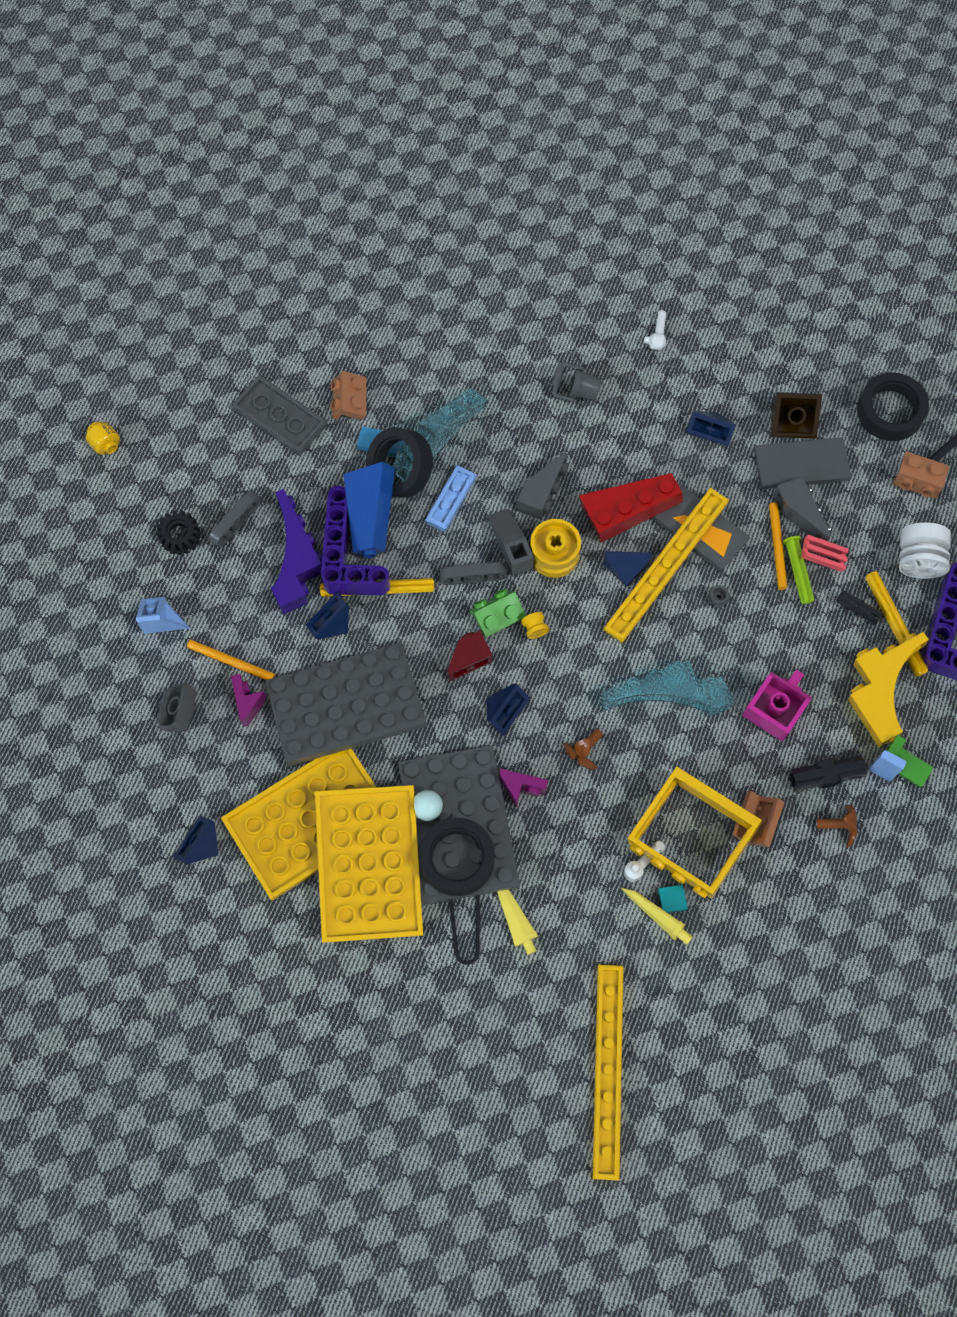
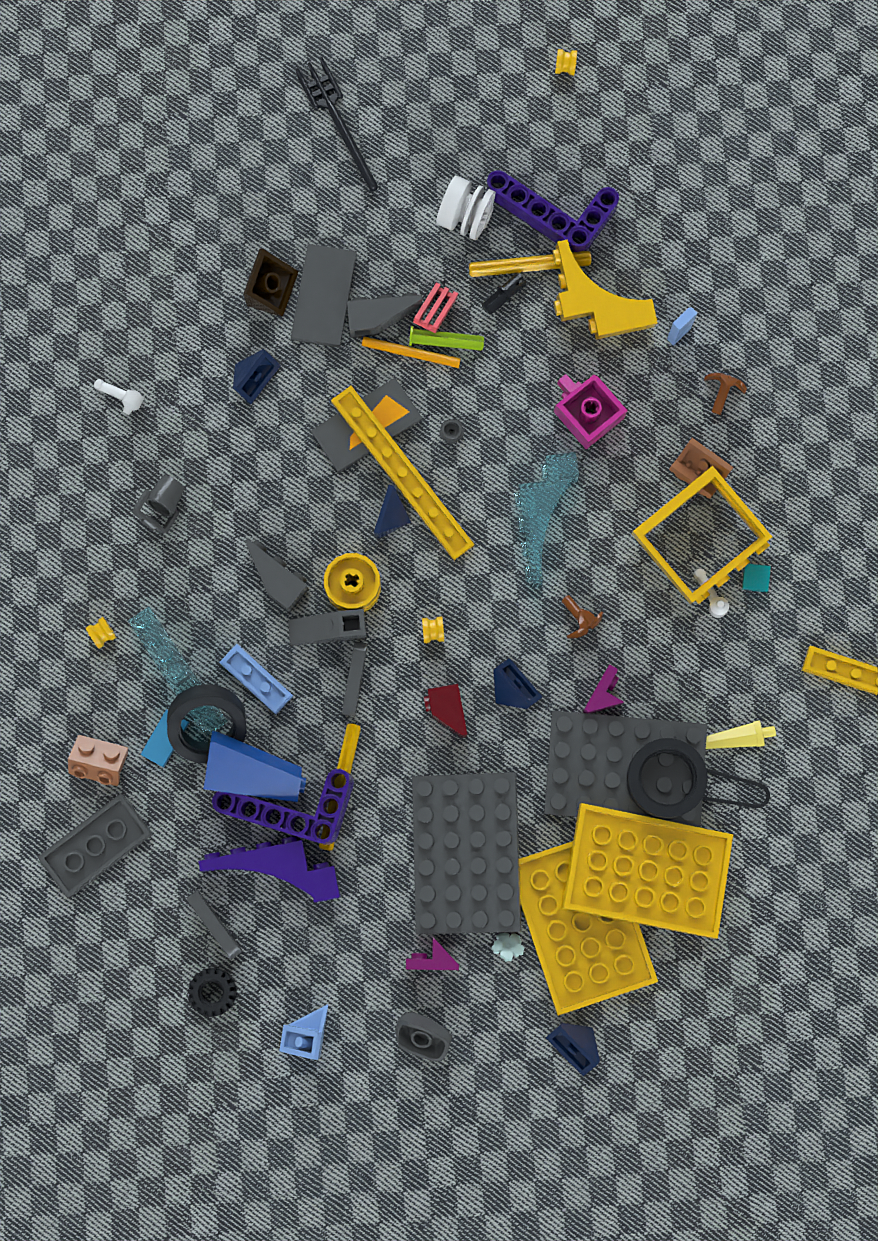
camera: 75 degrees left, 10 degrees up
(102, 437) = (66, 1056): yellow head -> none
(230, 660) = (380, 967): light orange bar -> none
(273, 760) = (508, 946): none -> light aqua plant
(330, 619) = (364, 846): dark blue slope -> none
(427, 805) = (605, 793): light aqua piece -> none
(454, 369) = (101, 632): none -> yellow wheel
(497, 612) = (405, 665): bright green bracket -> none
(629, 504) = (326, 494): red wedge -> none
(663, 919) = (781, 588): light yellow bar -> none
(828, 773) = (669, 385): black piece -> none
(899, 383) = (280, 152): black tyre -> none
(915, 769) = (669, 311): bright green bracket -> none
(921, 475) = (376, 179): nougat bracket -> none

